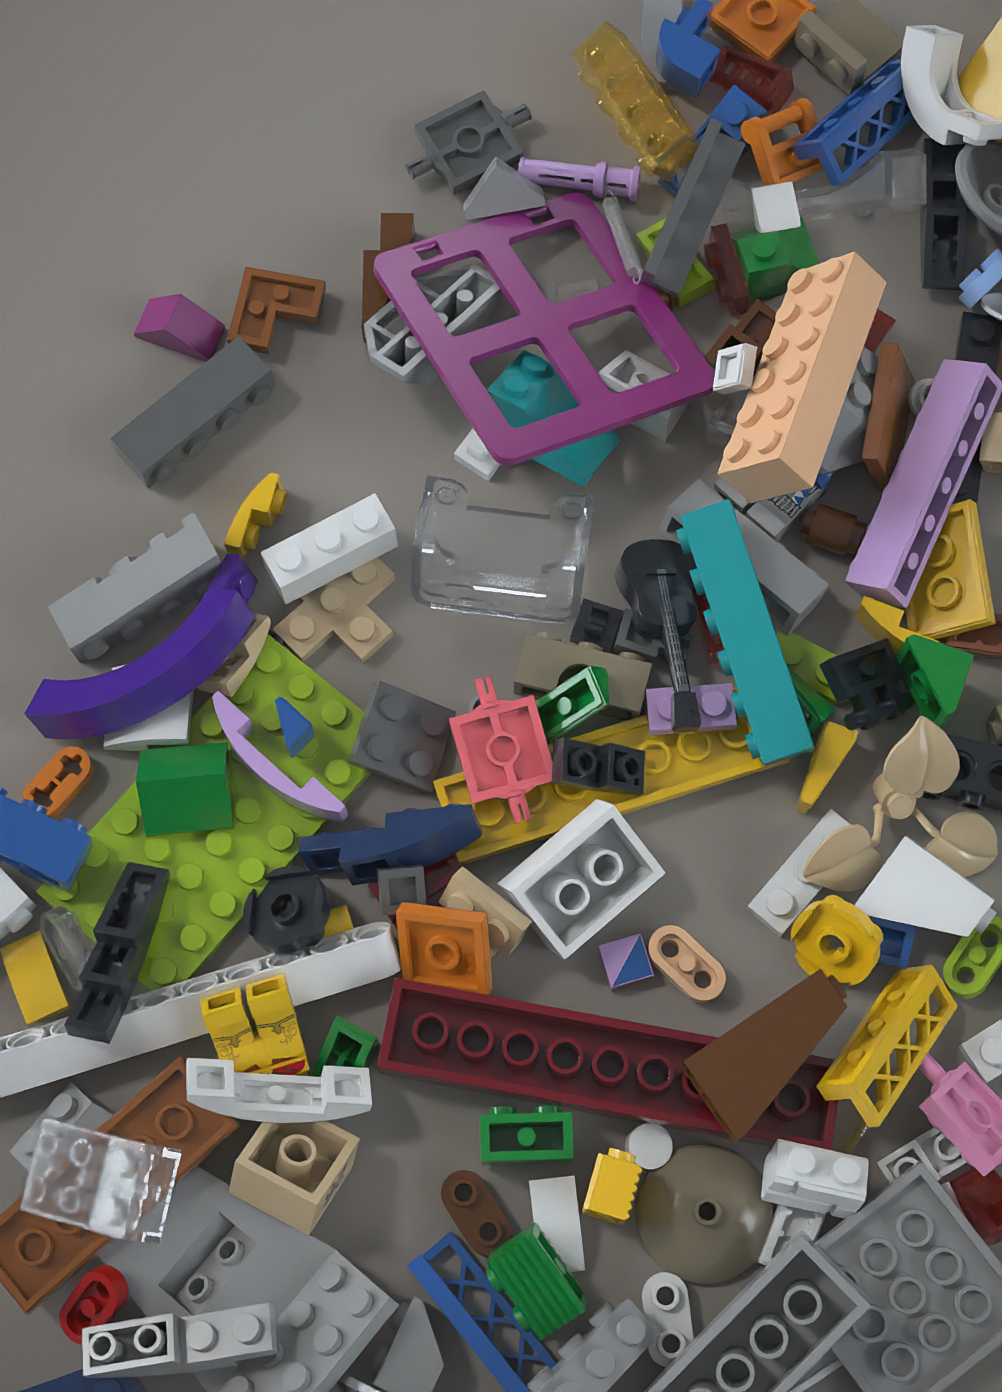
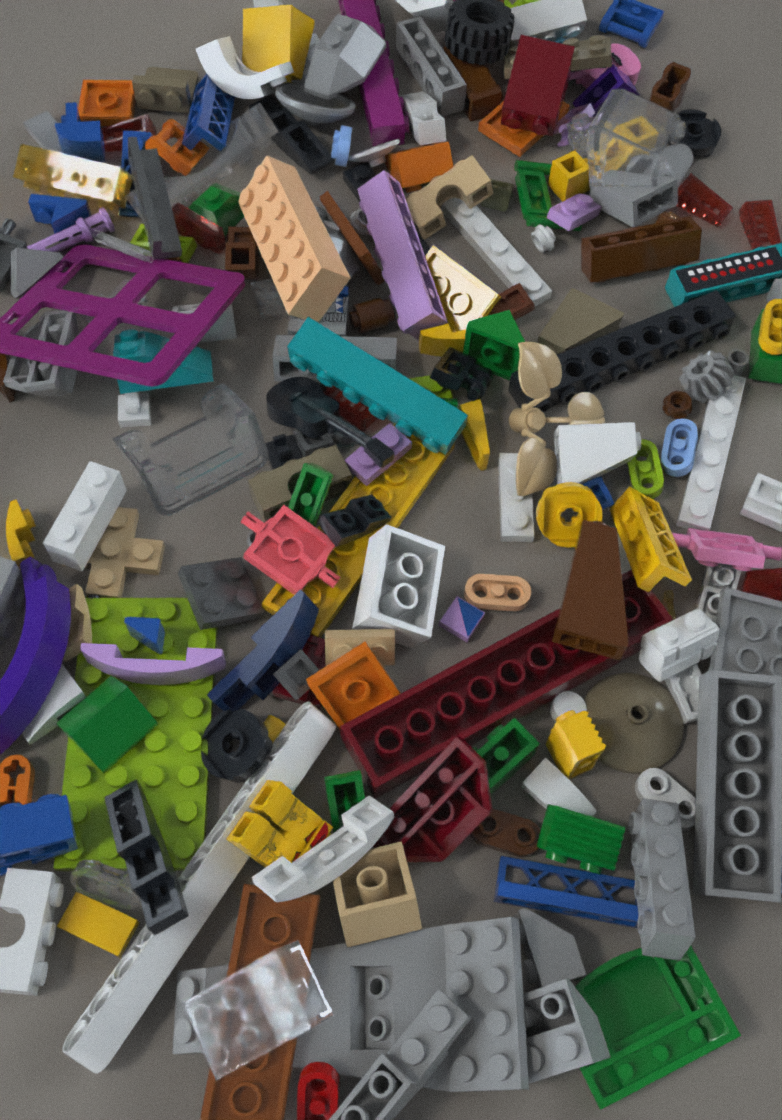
camera: 45 degrees left, 10 degrees down
(421, 1137) = (441, 805): none -> dark red wedge
(590, 137) = (58, 211): none -> blue slope
(734, 369) = (249, 259): white tile -> none
(775, 207) = (198, 176): white slope -> none

